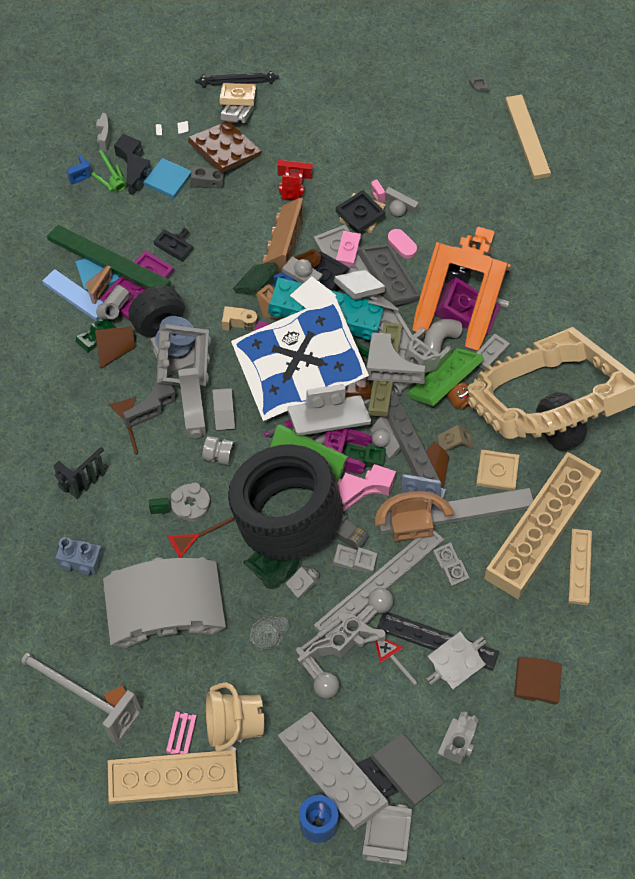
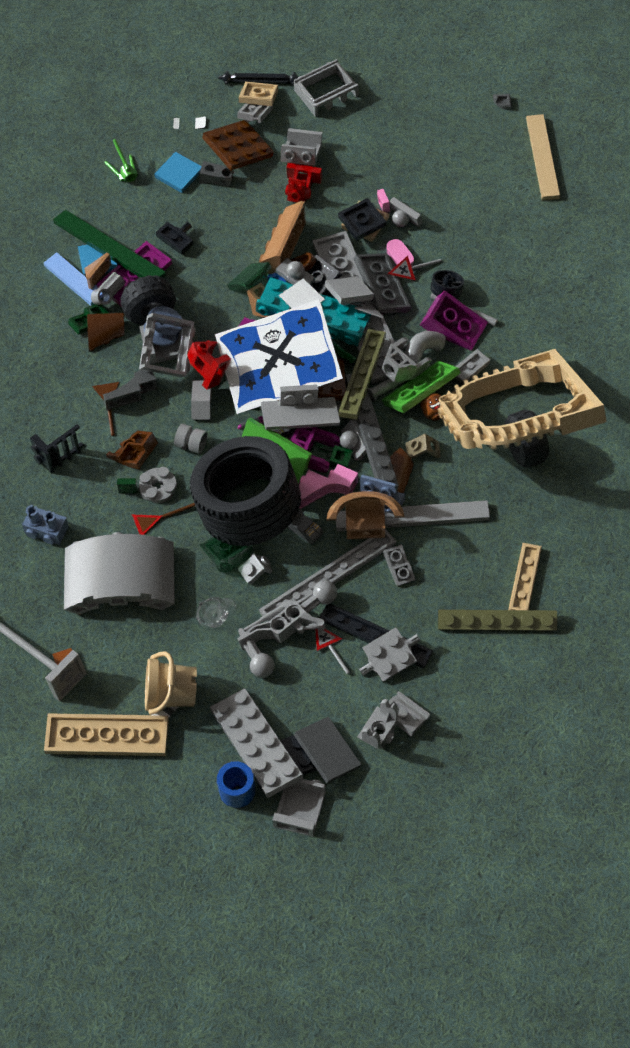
camera: 10 degrees right, 0 degrees up
(79, 172) = (92, 159): blue bracket -> none
(104, 134) = (121, 122): light grey slope -> none
(137, 167) = (149, 158): black arch -> none
(161, 467) = (135, 449): none -> reddish brown slope
(184, 717) = (119, 680): bright pink tile -> none
(192, 403) = (170, 390): light grey arch -> none
(233, 377) = (209, 367): none -> red tile
(239, 318) = (227, 313): tan leg -> none
(289, 143) = (301, 147): none -> light grey panel
(292, 72) = (318, 74): none -> light grey window
(348, 248) = (345, 254): bright pink plate -> none
(354, 559) = (309, 553): light grey slope -> none
(387, 365) = (362, 370): light grey arch -> none
(409, 258) = (405, 270): none -> piece
(470, 258) = (461, 273): orange piece -> none
(489, 723) = (410, 714): none -> light grey plate
(497, 470) = (459, 481): tan tile -> none
(538, 680) = (465, 680): reddish brown slope -> none
(542, 525) = (493, 536): tan brick -> none
(559, 612) = (497, 619): none -> olive plate

